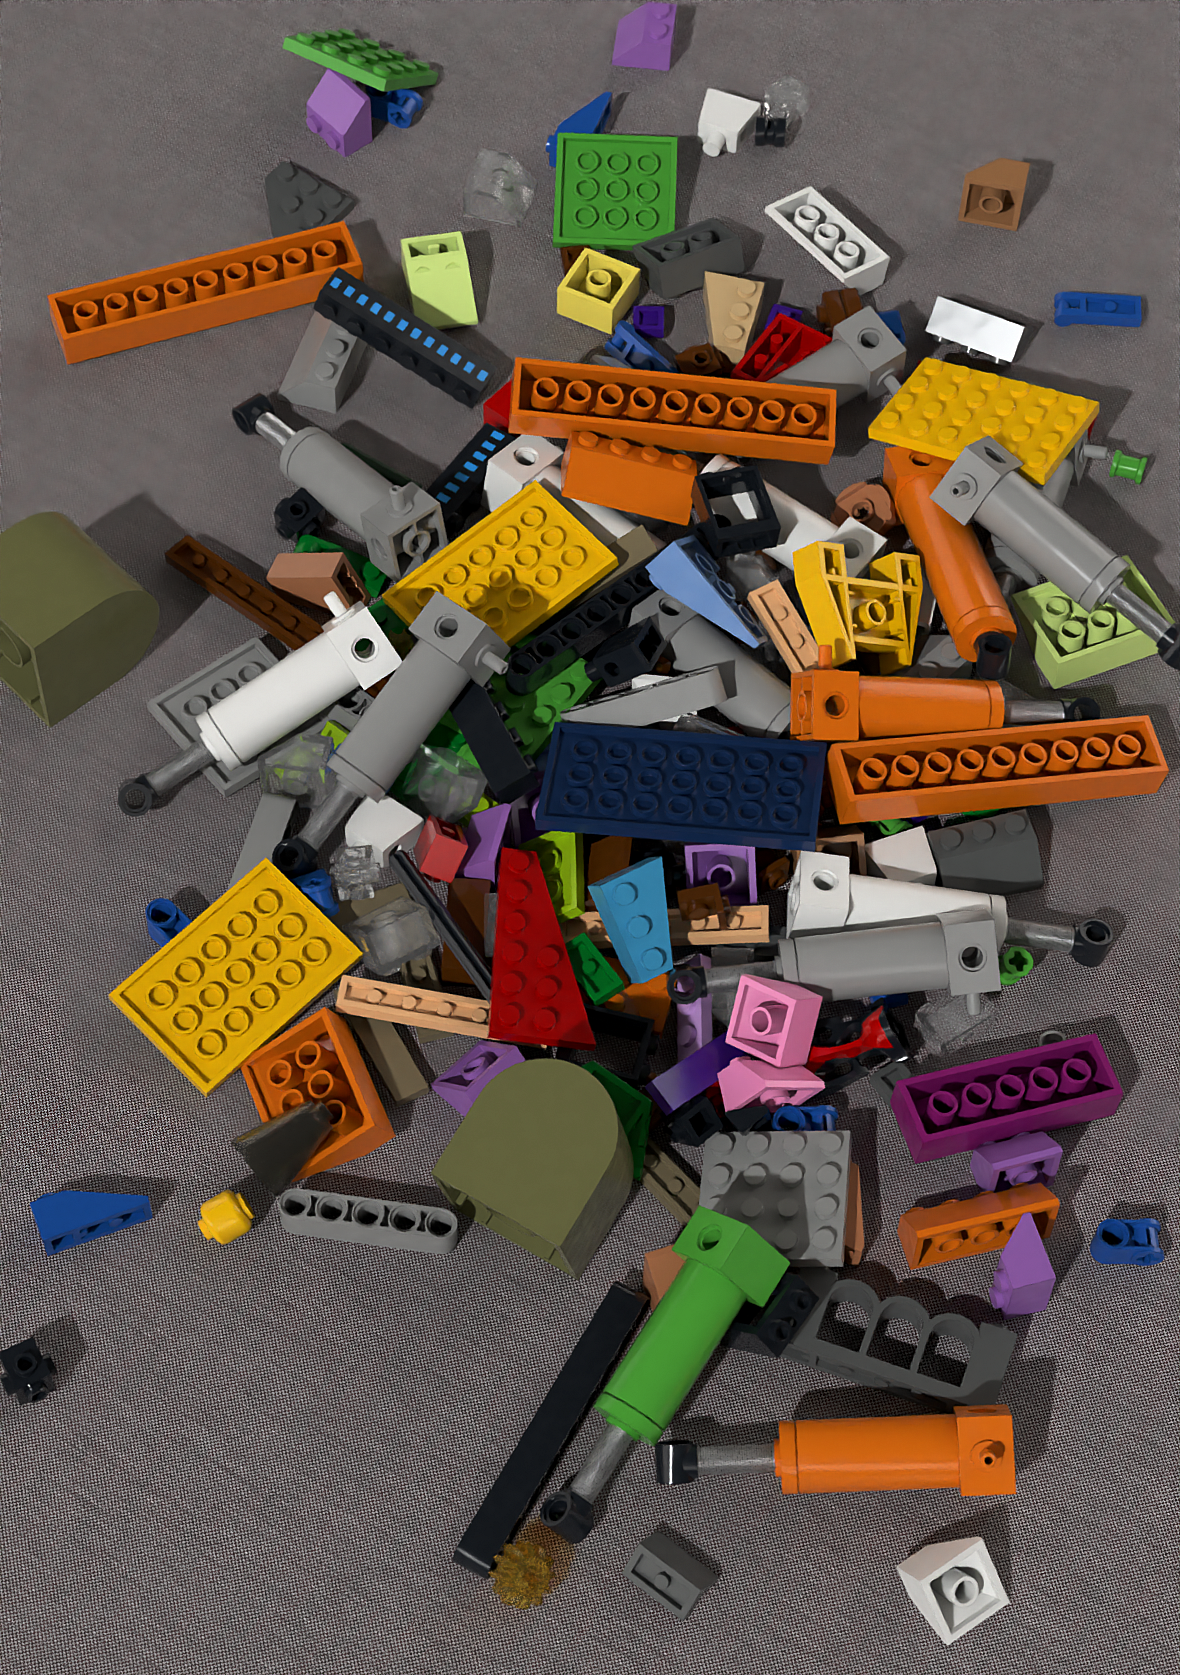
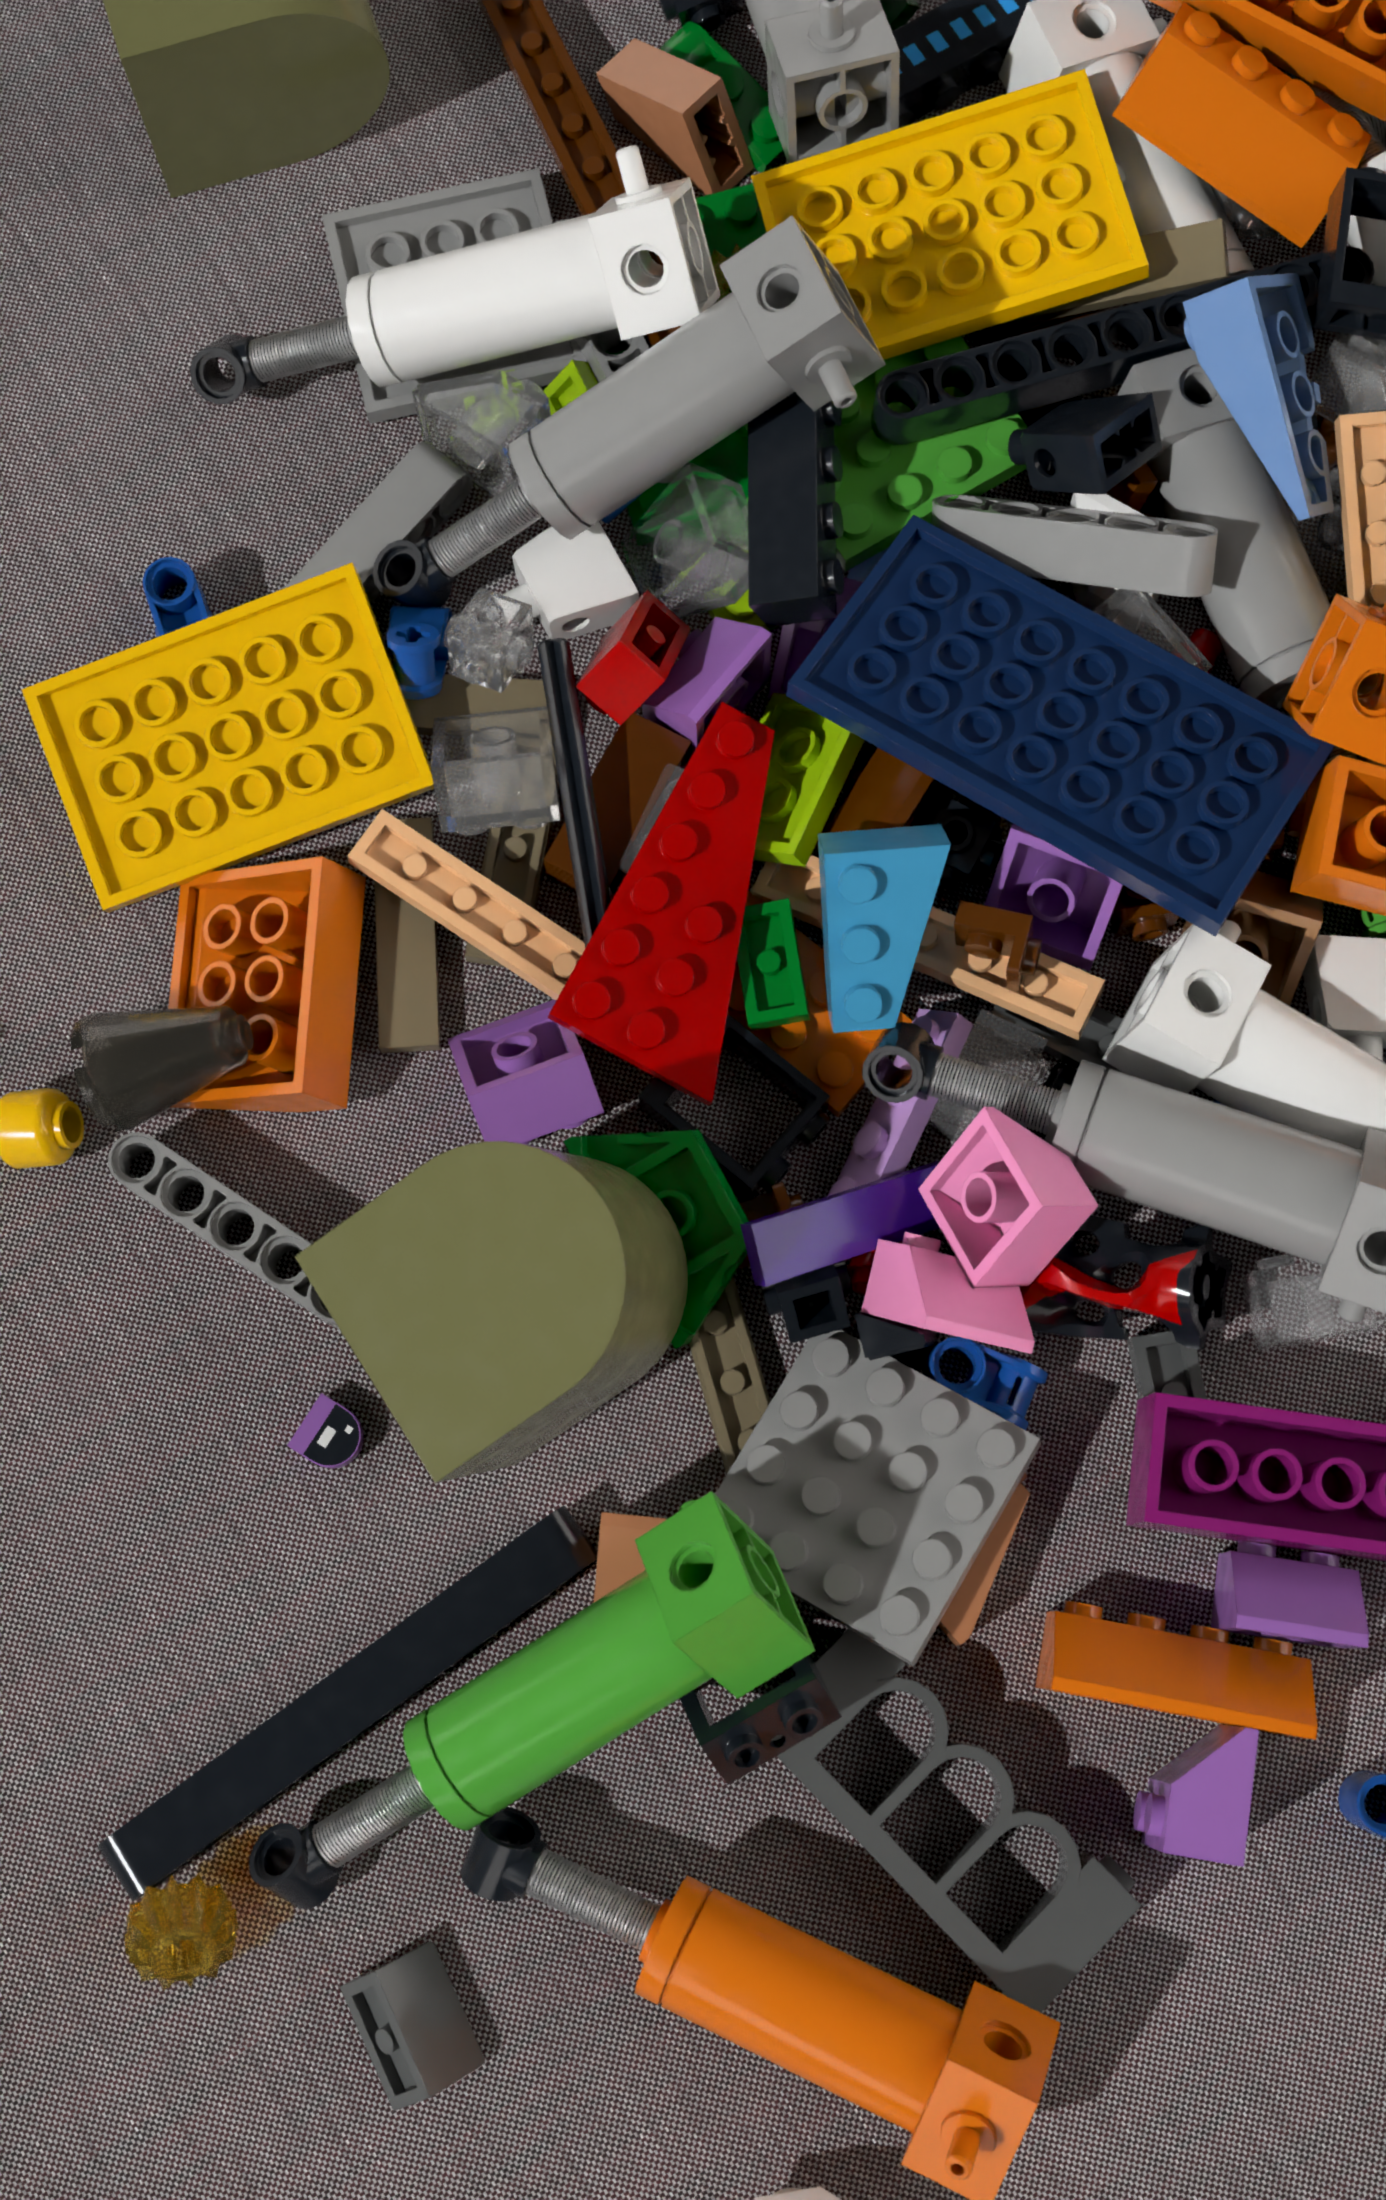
camera: 30 degrees right, 20 degrees up
(469, 1305) = (328, 1435): none -> tile

